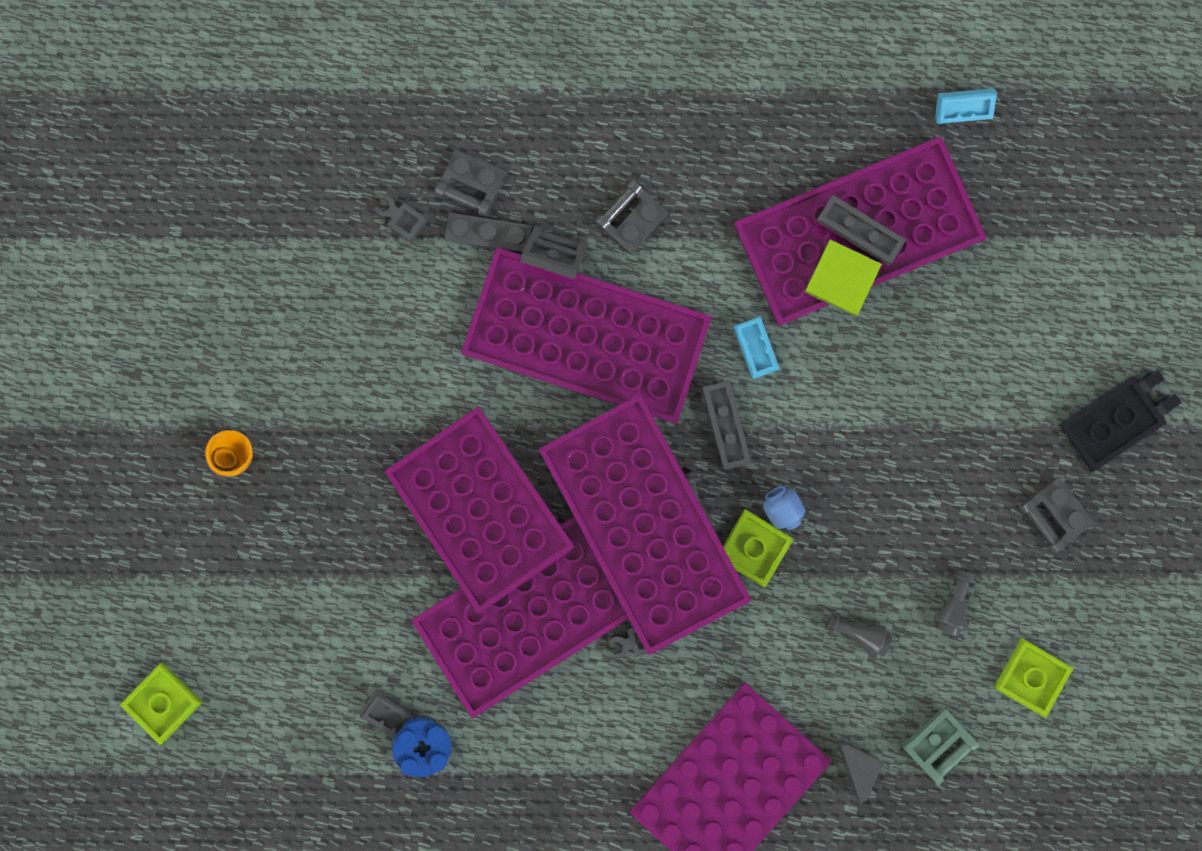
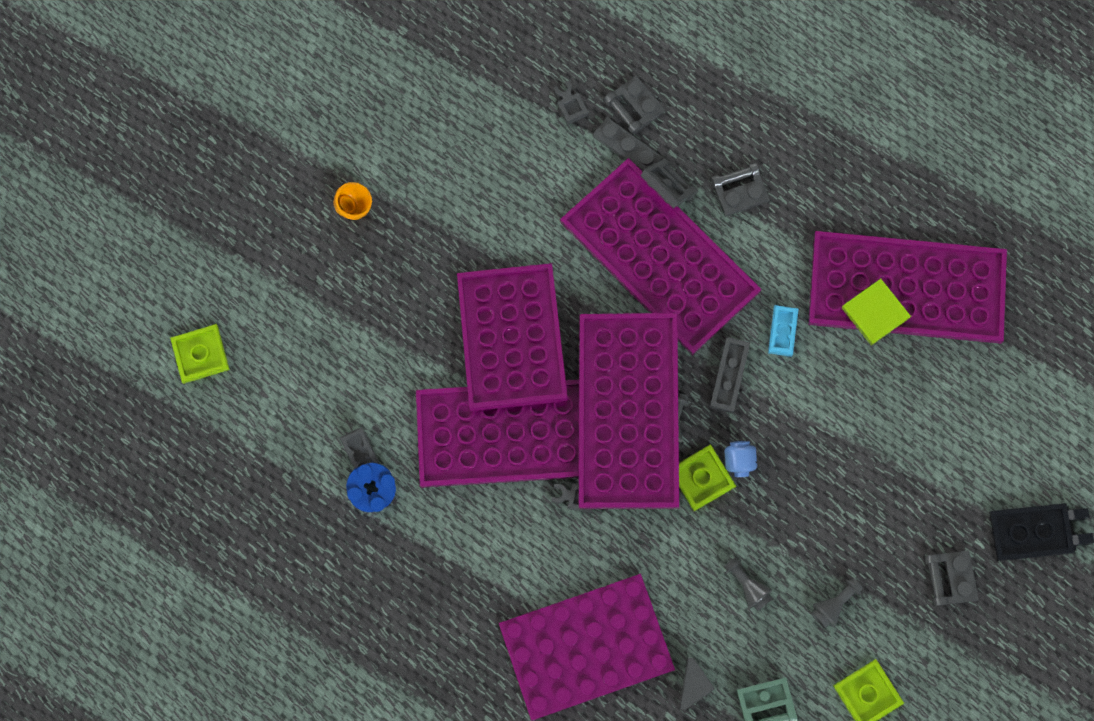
camera: 30 degrees right, 10 degrees down
(861, 230) = (907, 284): dark grey plate -> none
(965, 106) = (1037, 237): medium azure plate -> none

